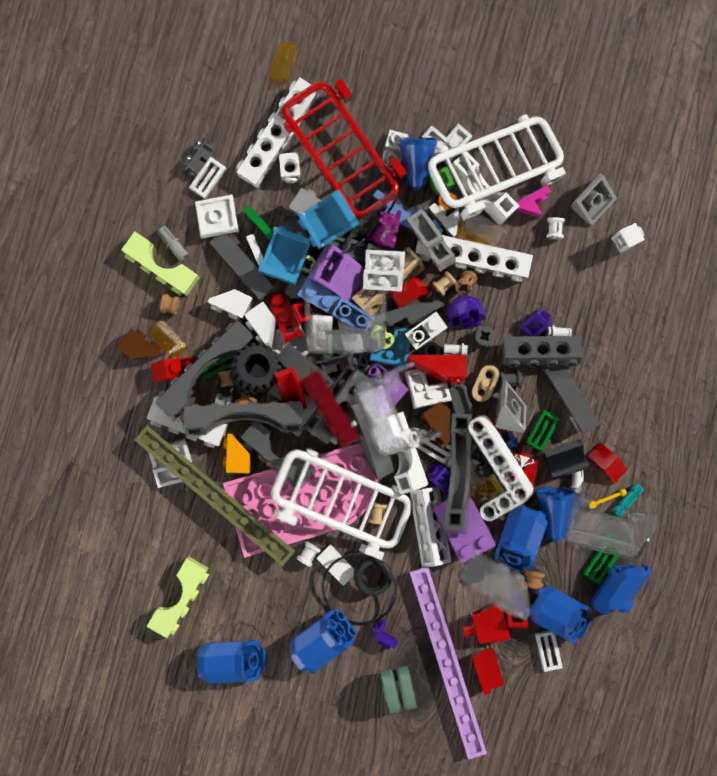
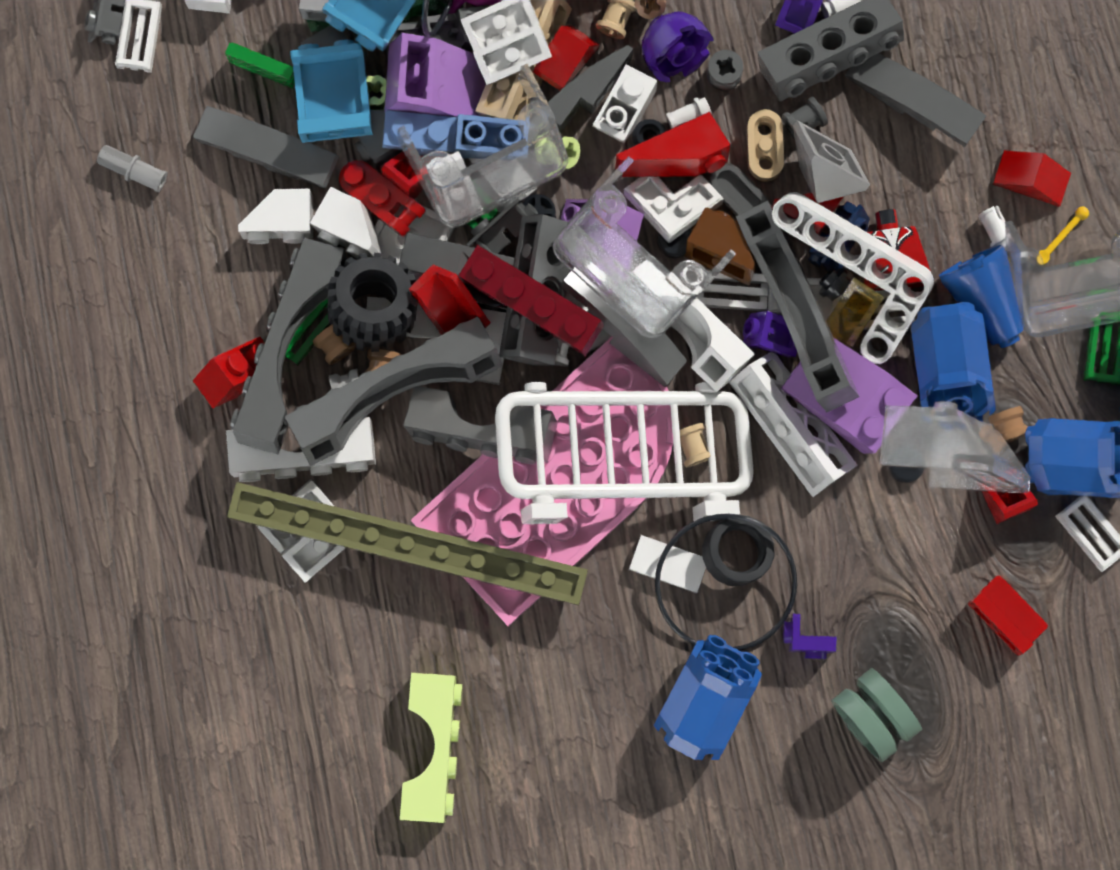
camera: 20 degrees left, 5 degrees down
(138, 347) = (159, 365): reddish brown slope -> none
(141, 250) = (173, 217): yellowish green arch -> none
(169, 304) = (176, 269): medium nougat wheel -> none
(169, 339) = (202, 327): clear yellow slope -> none
(216, 216) = (185, 89): white tile -> none
(231, 661) = (571, 808): blue brick -> none
(238, 457) = (414, 462): light orange slope -> none
(255, 249) = (276, 111): white tile -> none
(308, 554) = (612, 567): white bush -> none
(396, 353) = (593, 166): dark azure tile -> none
(448, 662) = (937, 634): lavender plate -> none
(488, 625) = (971, 537): red torso -> none
(535, 427) = (909, 208): green tile -> none
(566, 459) = (960, 202): black panel -> none
(628, 500) = (1097, 221): teal axle -> none

